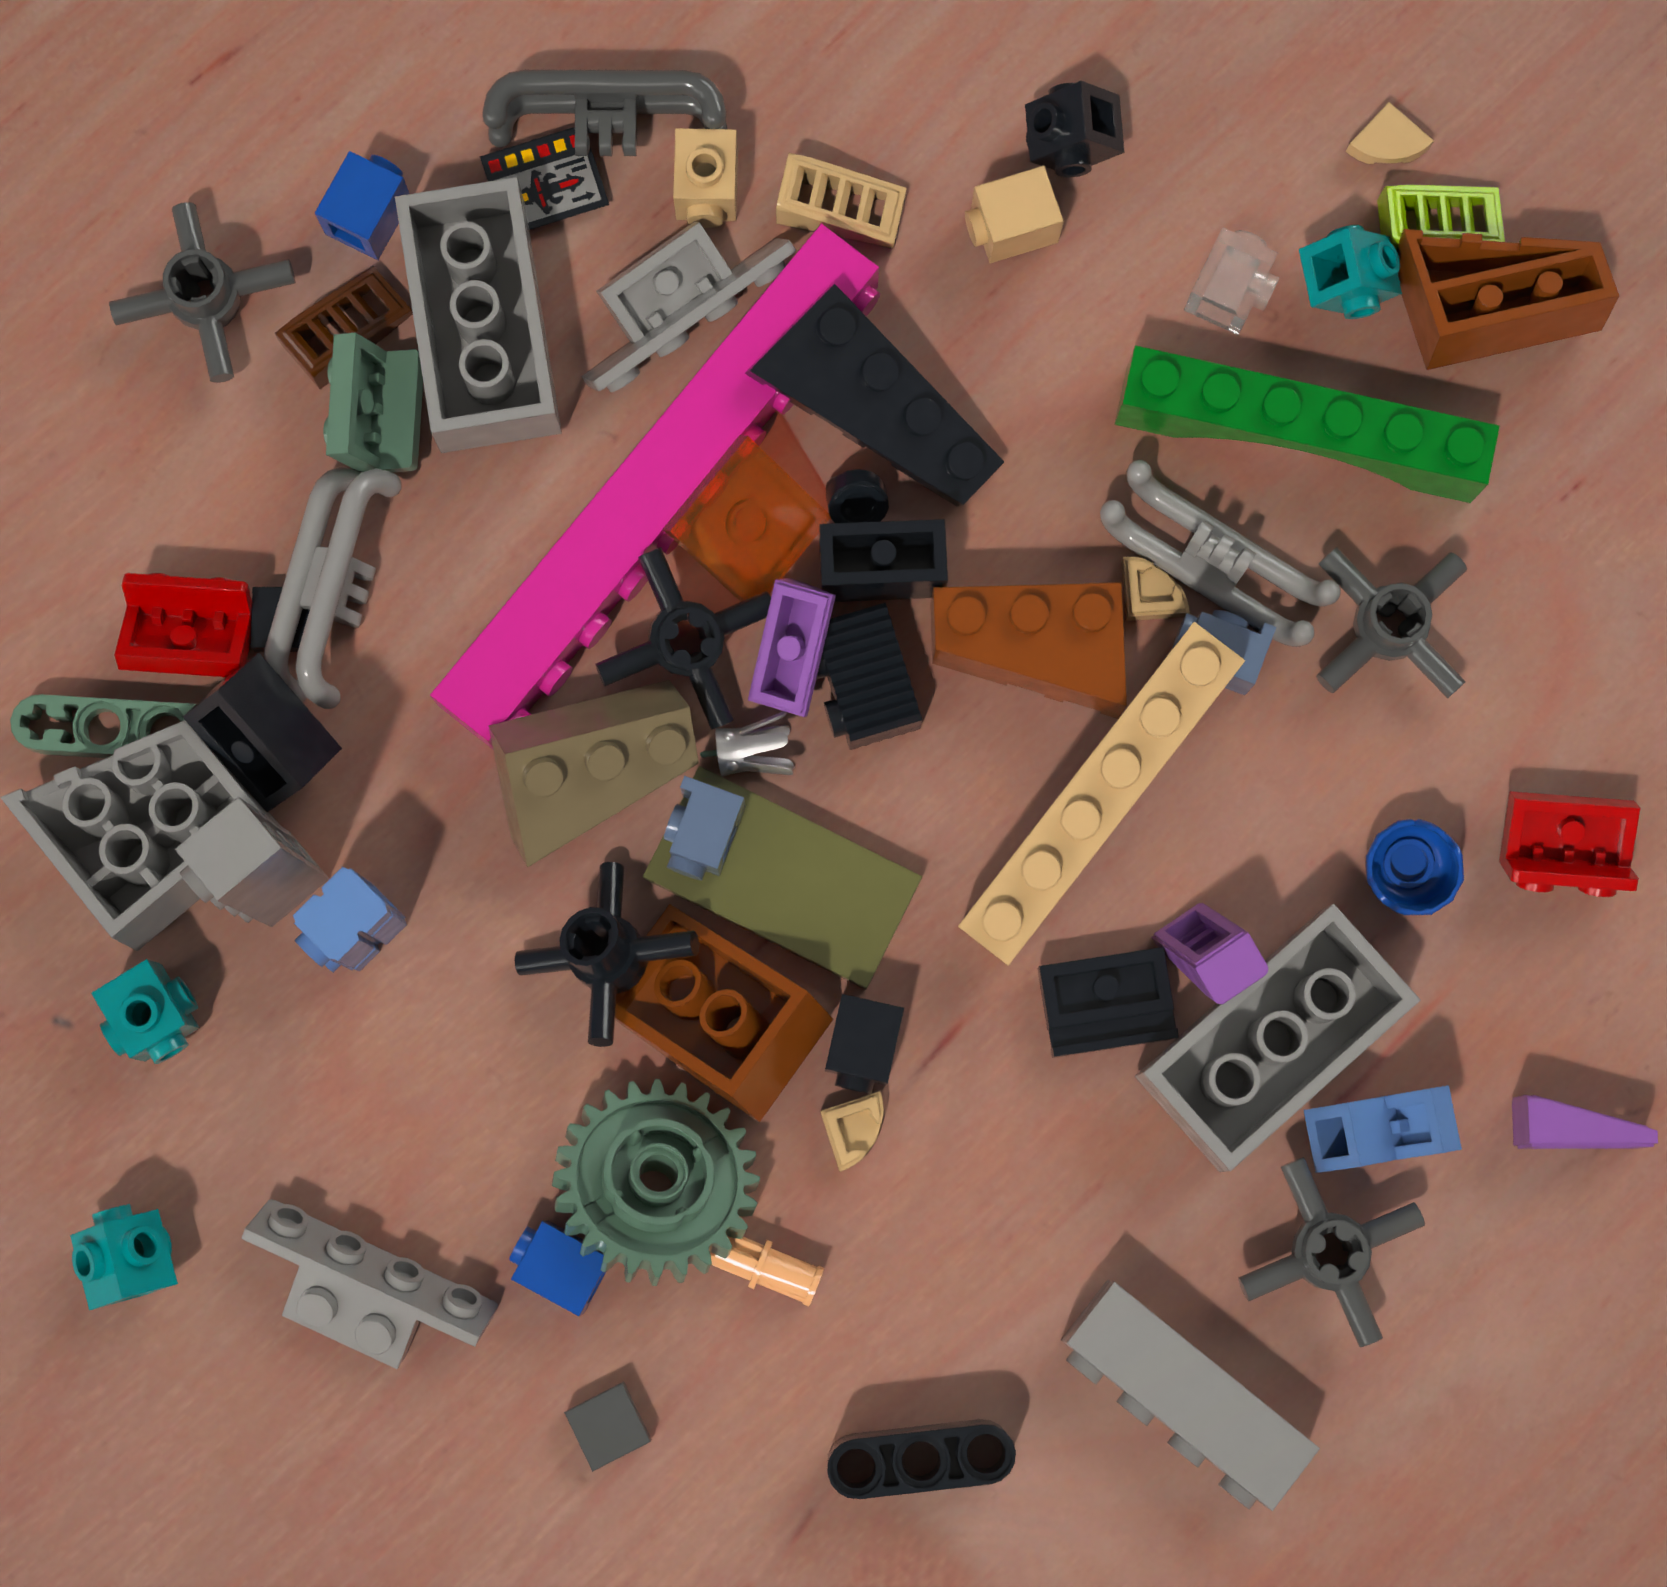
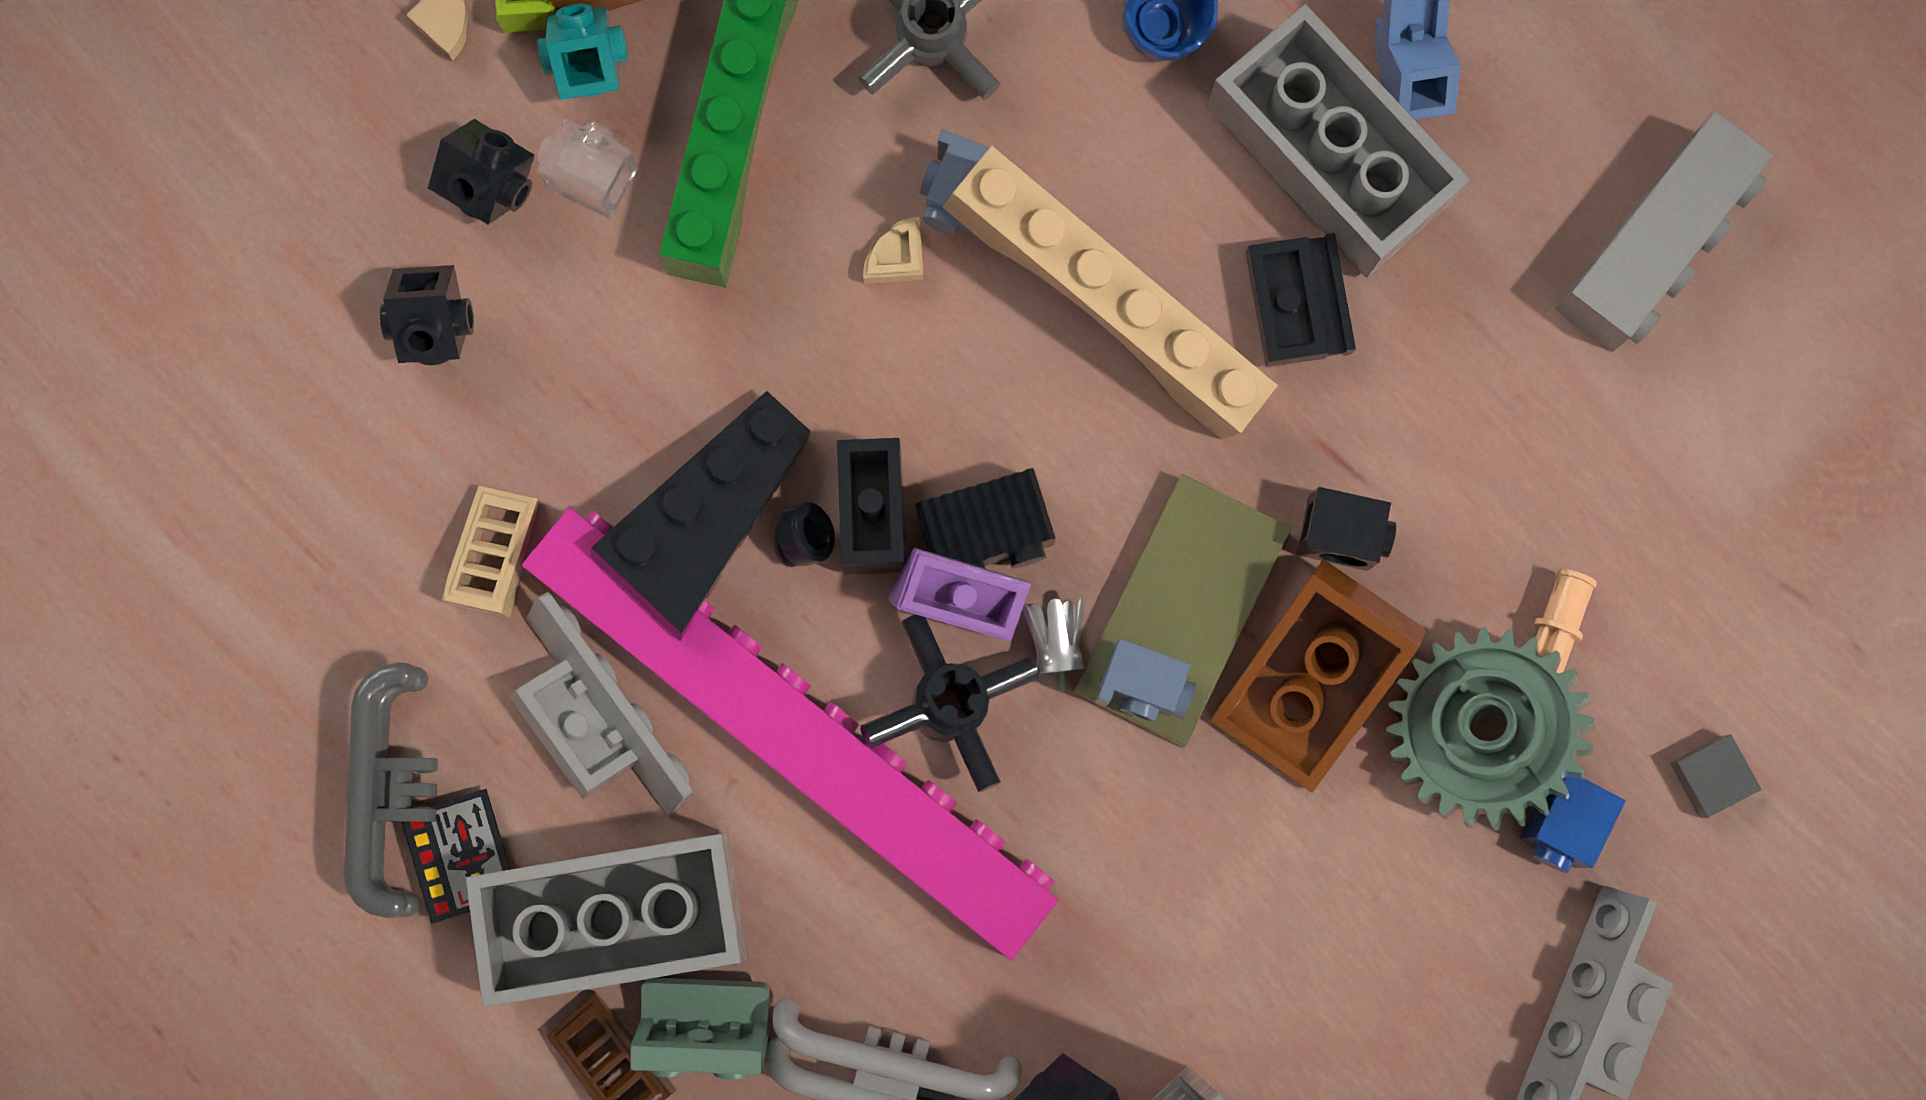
camera: 90 degrees left, 0 degrees up
(347, 922) = (1247, 1040): medium blue brick -> none
(361, 203) = (479, 1045): blue brick -> none
(588, 762) = (1078, 797): dark tan wedge -> none
(605, 952) = (1248, 793): black bar -> none
(705, 176) = (462, 686): tan brick -> none
(747, 521) = (828, 642): clear orange tile -> none
(853, 1128) = (1424, 542): tan tile -> none
(952, 1468) = (1750, 453): black beam -> none
(1014, 215) = (514, 374): tan brick -> none
(1036, 638) = (949, 354): dark orange wedge -> none
(1212, 952) = (1259, 195): medium lavender slope -> none
(1215, 558) = (867, 188): light grey piece -> none
(1222, 177) = (482, 172): none -> black brick
(1309, 1240) = (1537, 115): dark grey bar -> none

